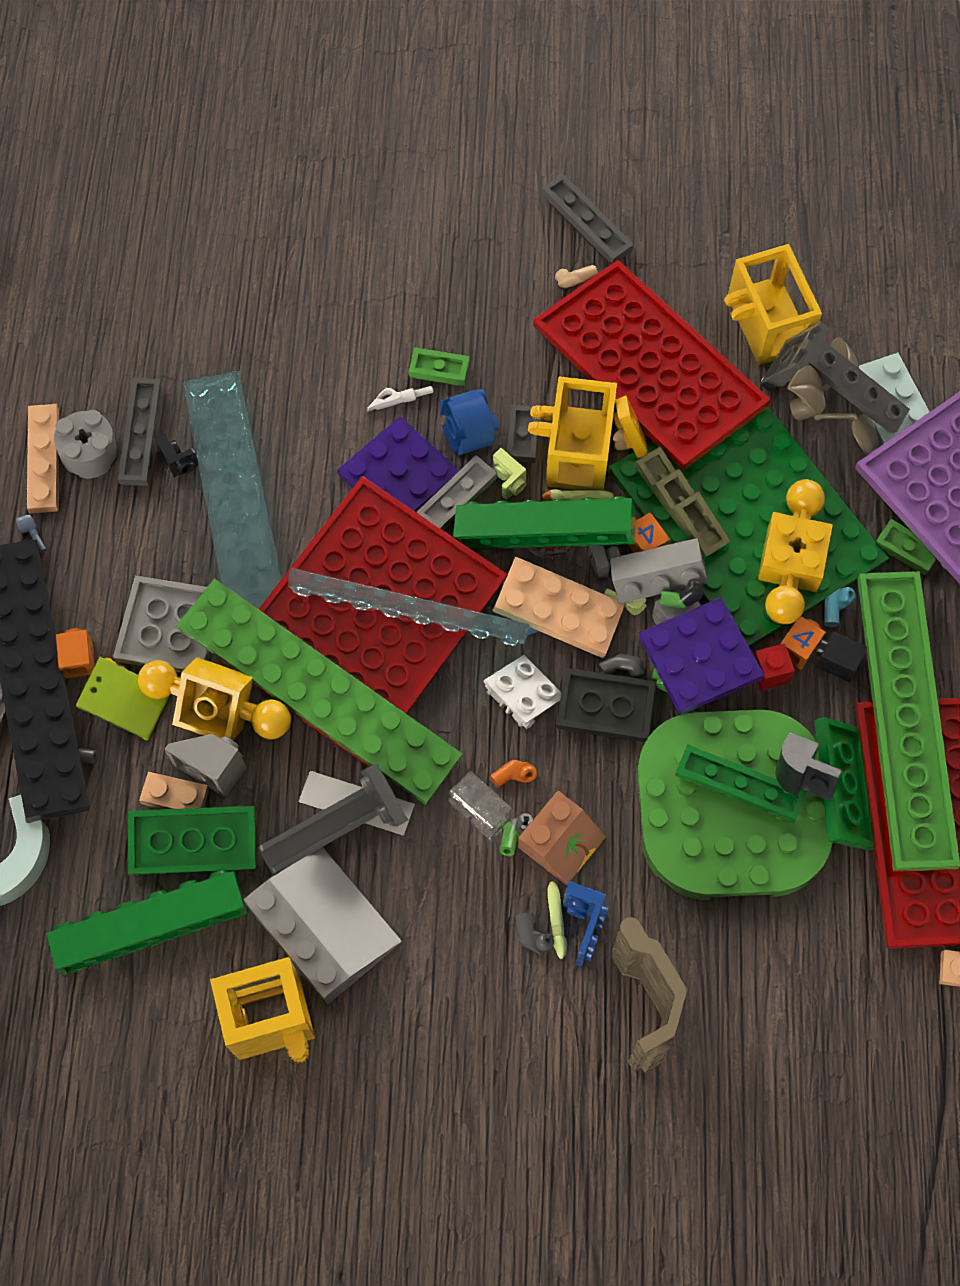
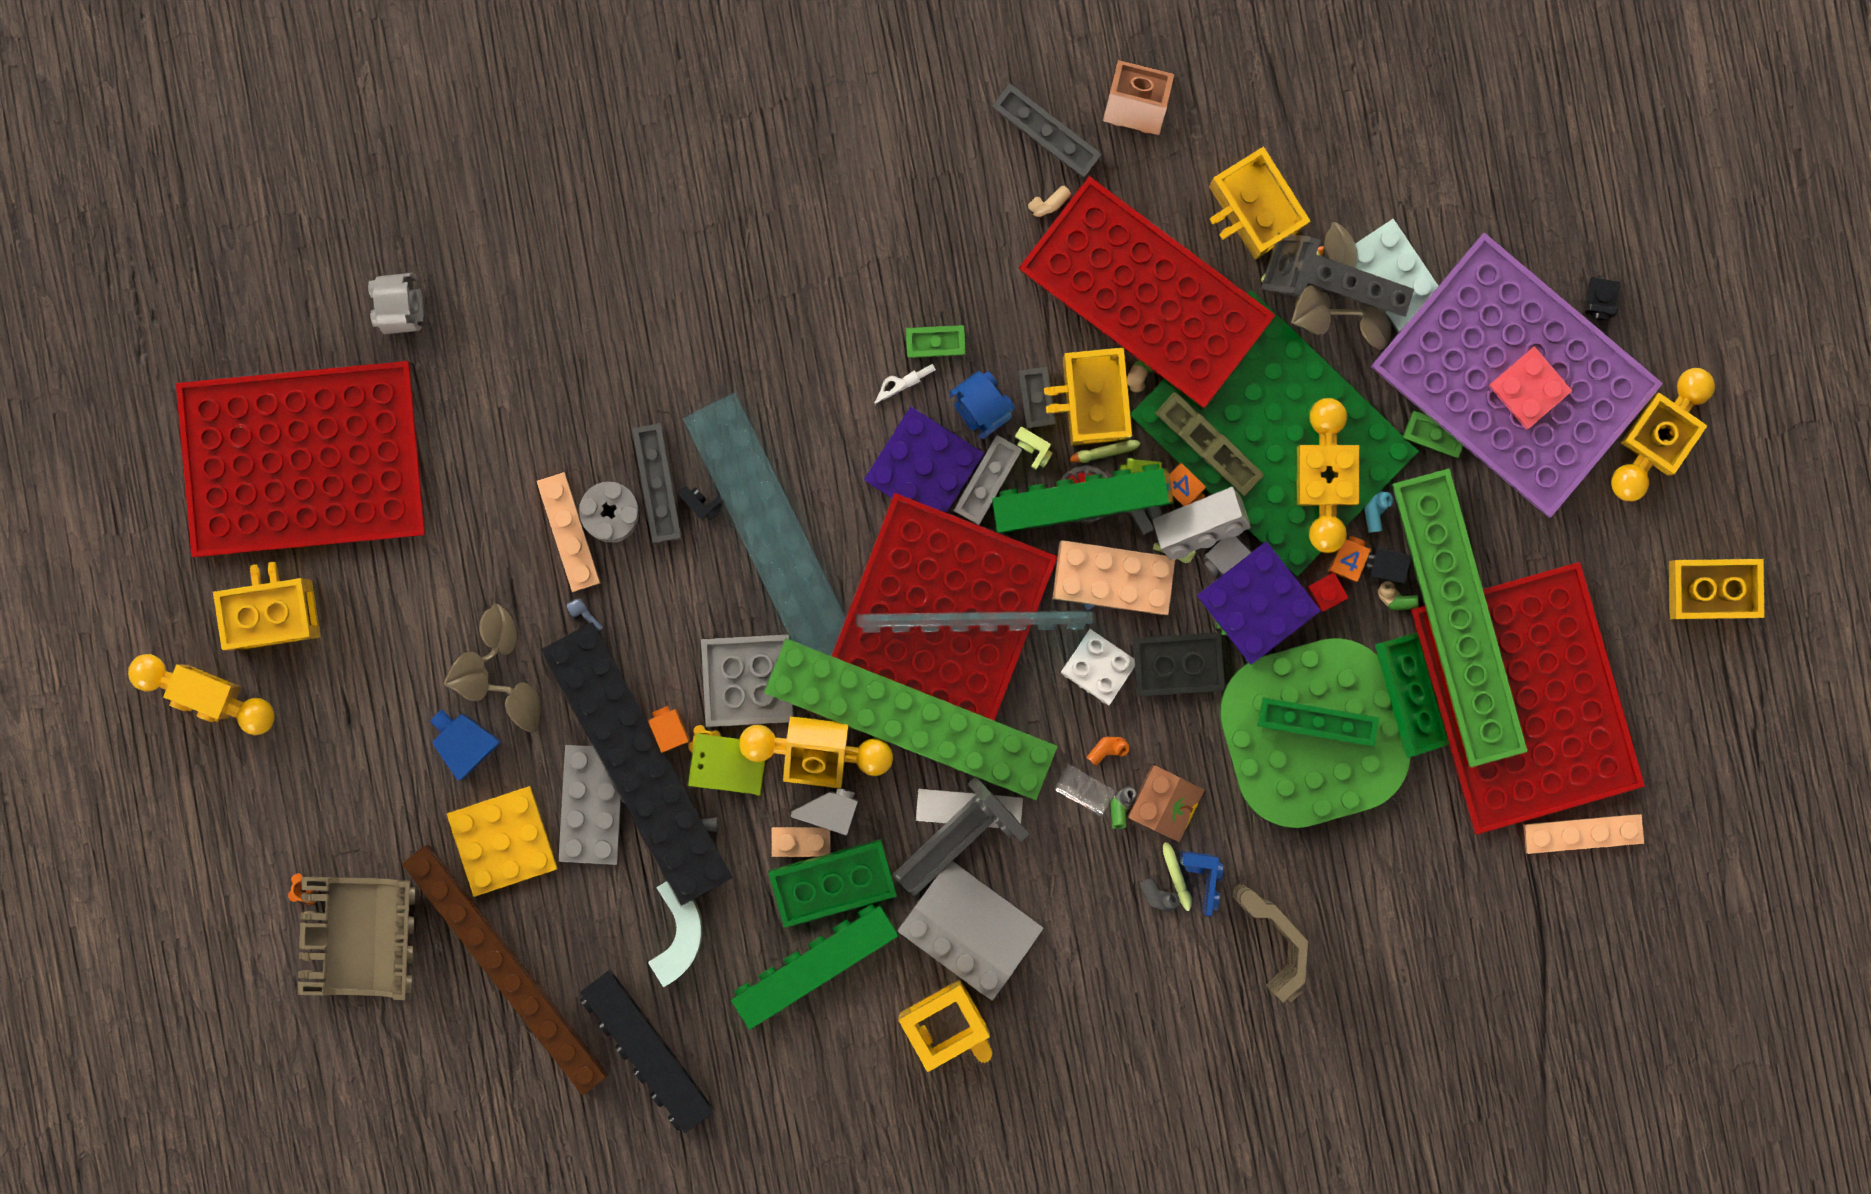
camera: 10 degrees left, 20 degrees up
(624, 662) = (1186, 616): dark grey arm -> none
(633, 434) = (1144, 380): yellow plate -> none
(676, 210) = (1138, 97): none -> nougat slope
(685, 598) = (1230, 551): arm -> none
(800, 770) = (1367, 702): black brick -> none
(839, 692) = (1394, 600): none -> arm

